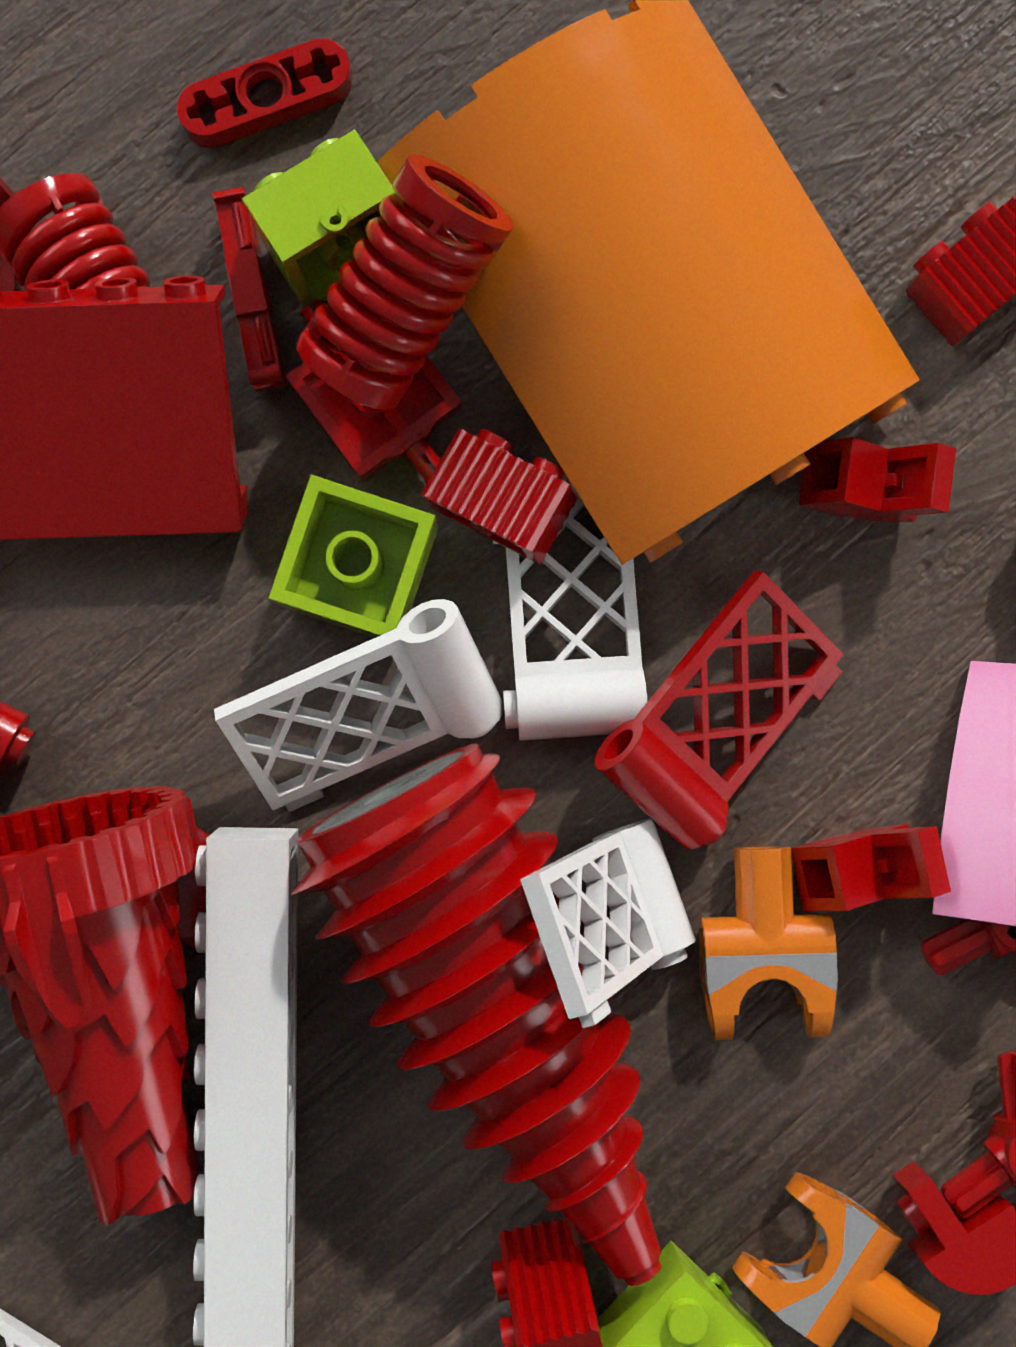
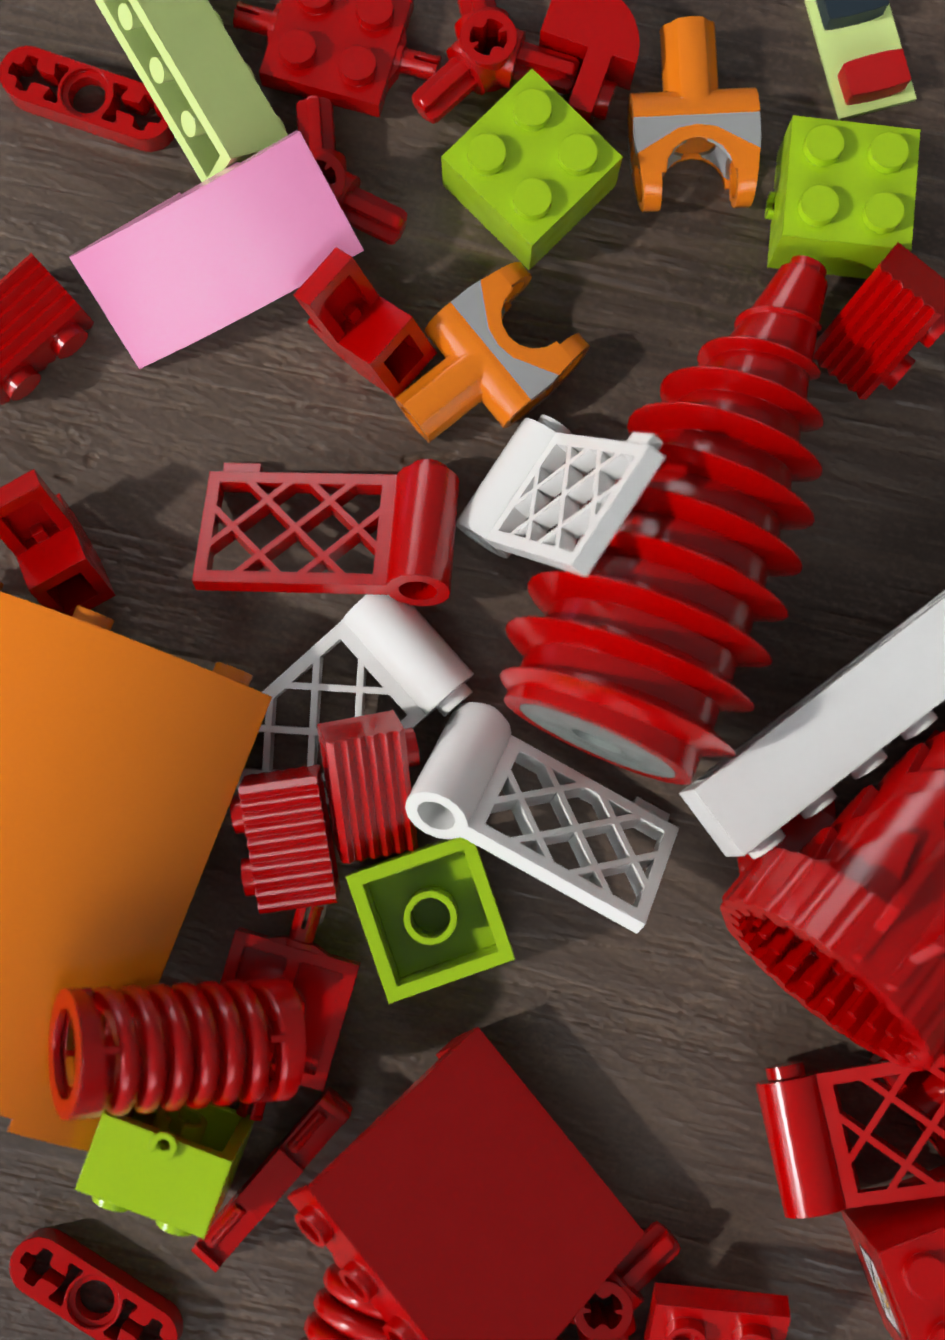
camera: 125 degrees left, 0 degrees up
(494, 590) = (369, 784): none -> red brick
(899, 1106) = (530, 169): none -> lime brick

